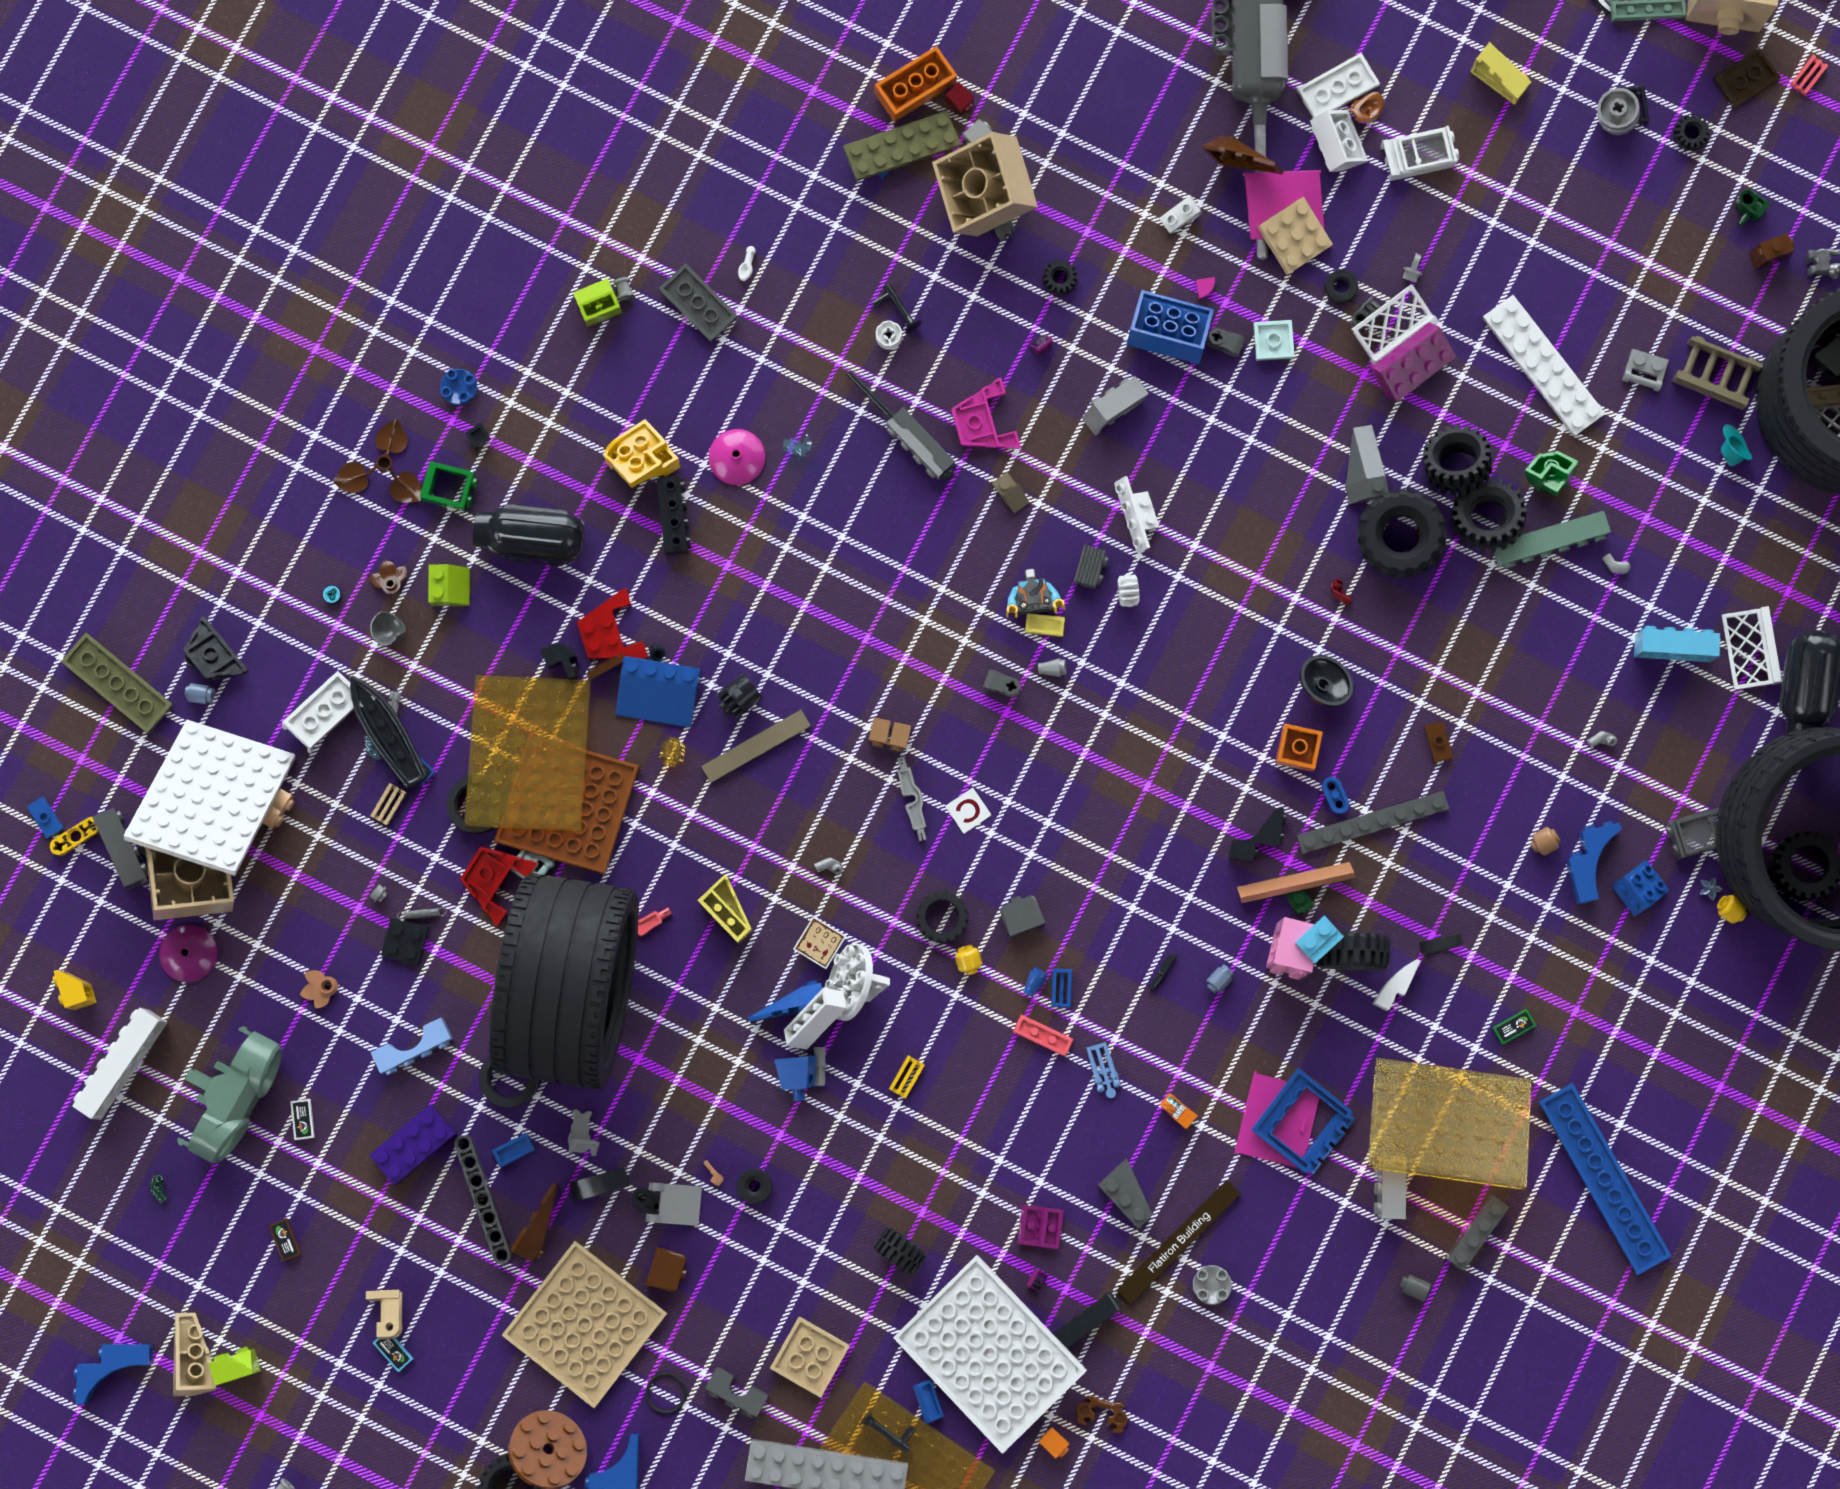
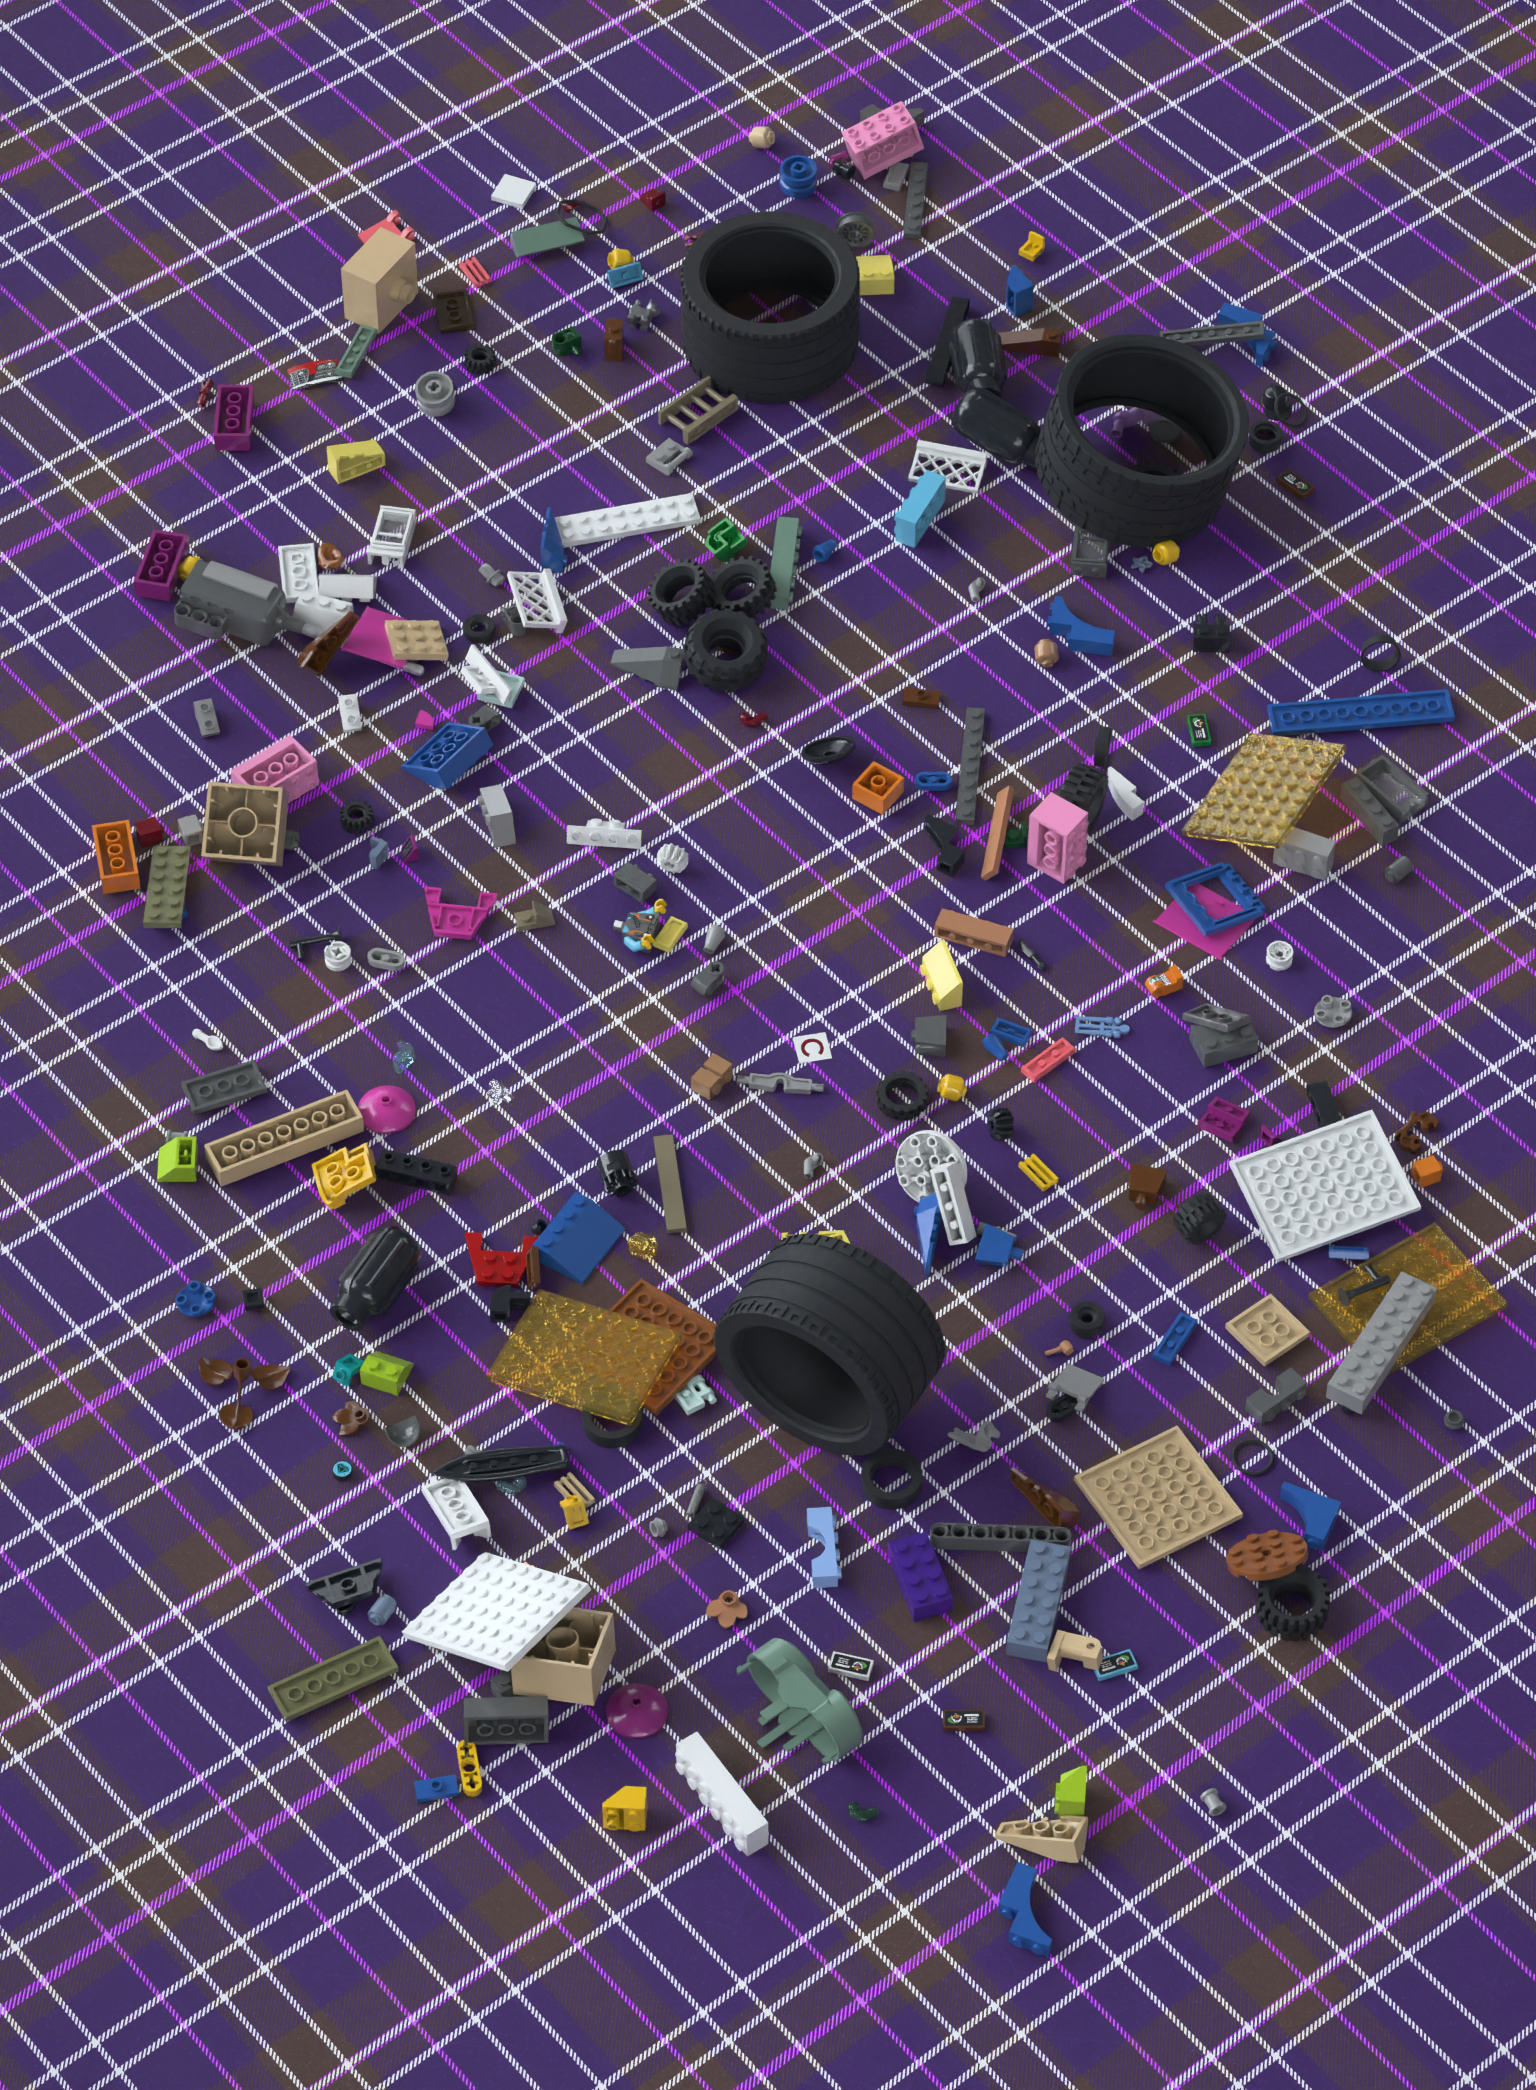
camera: 70 degrees left, 30 degrees down
(363, 813) = (574, 1511): none -> yellow bracket
(428, 1259) = (1038, 1600): none -> sand blue brick
(430, 480) = (280, 1353): green window -> none
(438, 551) = (346, 1368): none -> teal bracket
(486, 875) = (686, 1431): red wing -> none
(513, 1150) = (963, 1501): blue tile -> none
(600, 1184) = (1029, 1438): black slope -> none
(658, 383) = (284, 1138): none -> tan brick
(667, 1270) = (1135, 1413): reddish brown torso -> none
(768, 1274) = (1175, 1339): none -> blue tile
(793, 550) = (500, 1091): none -> clear tile
(819, 942) = (881, 1192): piece -> none
(903, 381) = (387, 959): none -> light grey plate
(912, 436) = (443, 968): piece -> none
(927, 1183) = (1145, 1185): none -> reddish brown torso
(940, 1023) = (1000, 1124): none -> black gear
(1021, 317) = (378, 852): none -> sand blue bracket
(1068, 183) = (282, 766): none -> bright pink brick
(1090, 899) = (942, 977): none -> light yellow slope
(1119, 85) = (206, 717): none -> light grey plate
(1147, 1179) = (1216, 1017): none -> flat silver tile
(1163, 907) = (973, 932): none -> nougat brick
(1178, 1241) = (1283, 1024): dark brown tile -> none
(1220, 979) = (1058, 913): sand blue brick -> none
(1266, 1212) = (1281, 949): none -> white wheel
(1271, 318) = (484, 676): none -> white bracket
(1288, 134) = (320, 610): none -> white slope
(1319, 939) = (1061, 796): medium azure plate -> none
(1413, 361) = (576, 596): magenta brick -> none
(1467, 311) = (551, 546): none -> blue wedge
(1517, 1243) = (1393, 788): none -> dark grey door
(1584, 571) = (824, 550): none -> blue cone
(1615, 566) = (829, 531): light grey arm -> none
(1636, 996) = (1211, 637): none -> black brick
(1640, 888) = (1119, 607): blue bracket -> none
(1685, 1172) = (1382, 665): none -> black tyre
(1734, 447) = (771, 423): teal piece -> none

